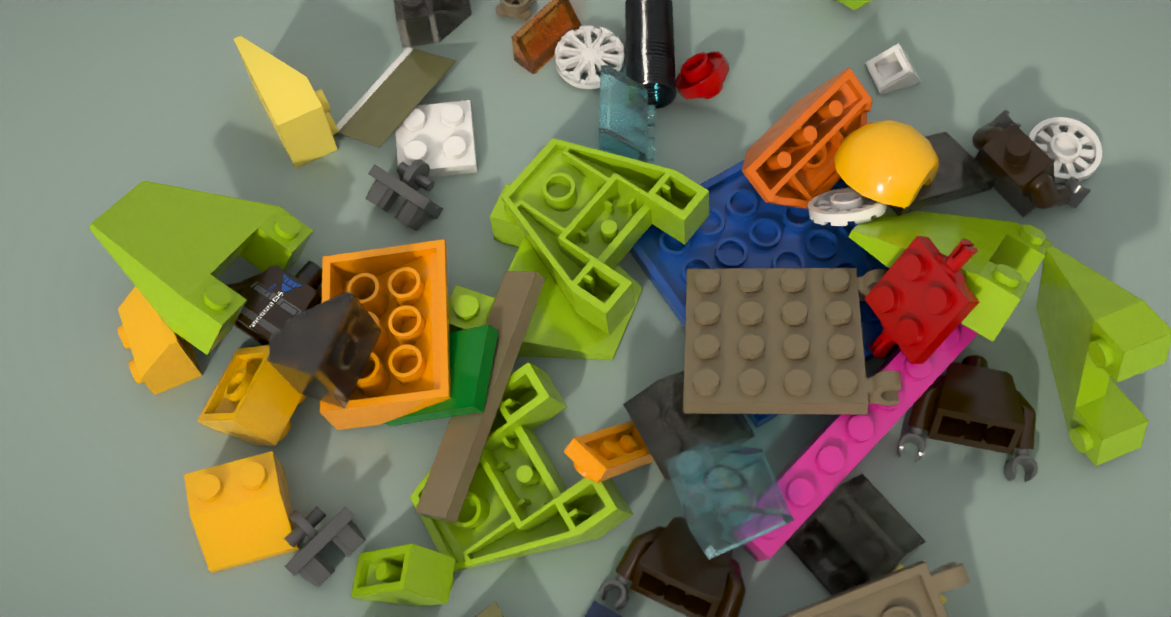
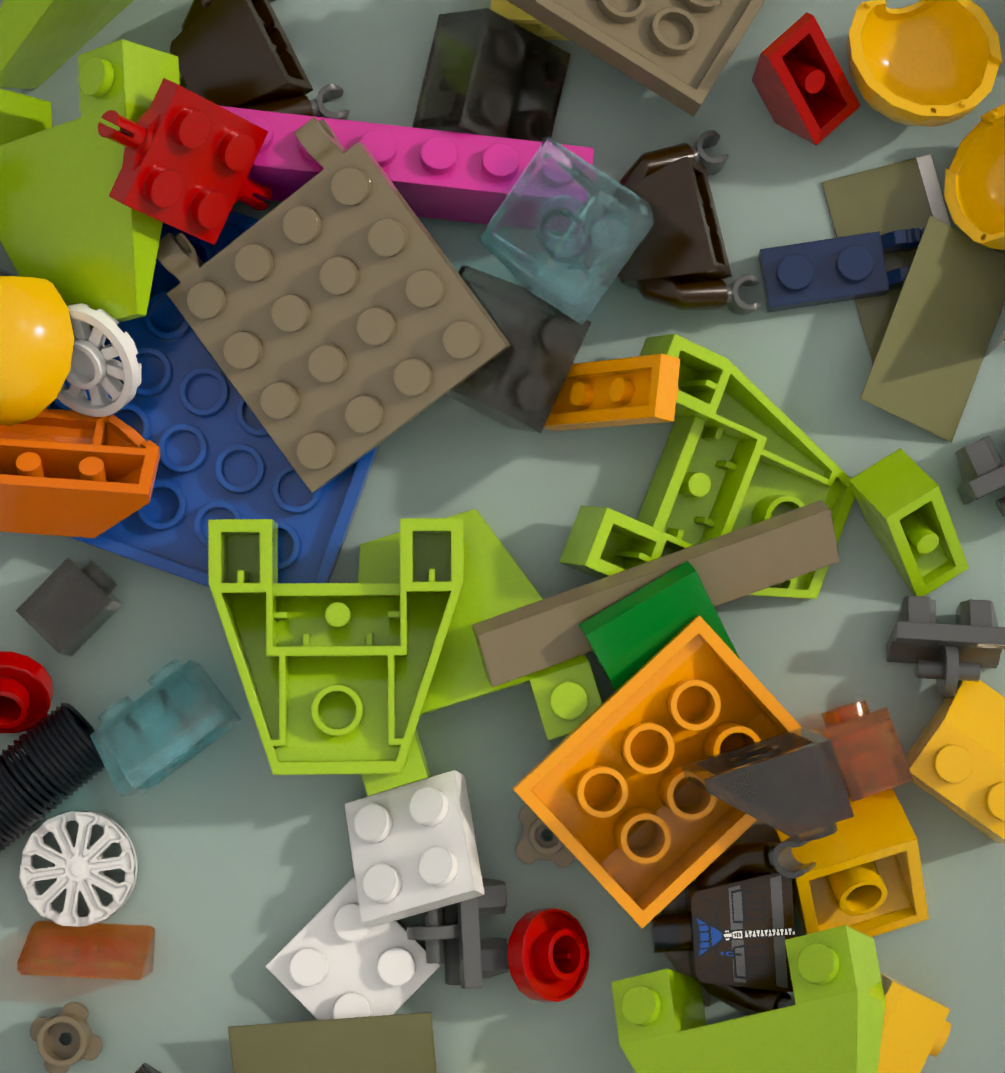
camera: 125 degrees left, 20 degrees up
(305, 436) = (865, 749): none -> clear orange brick
(355, 219) = (548, 955): none -> red plate
(459, 192) = (414, 849): none -> white plate
(722, 130) = (71, 605): none -> clear smoke brick

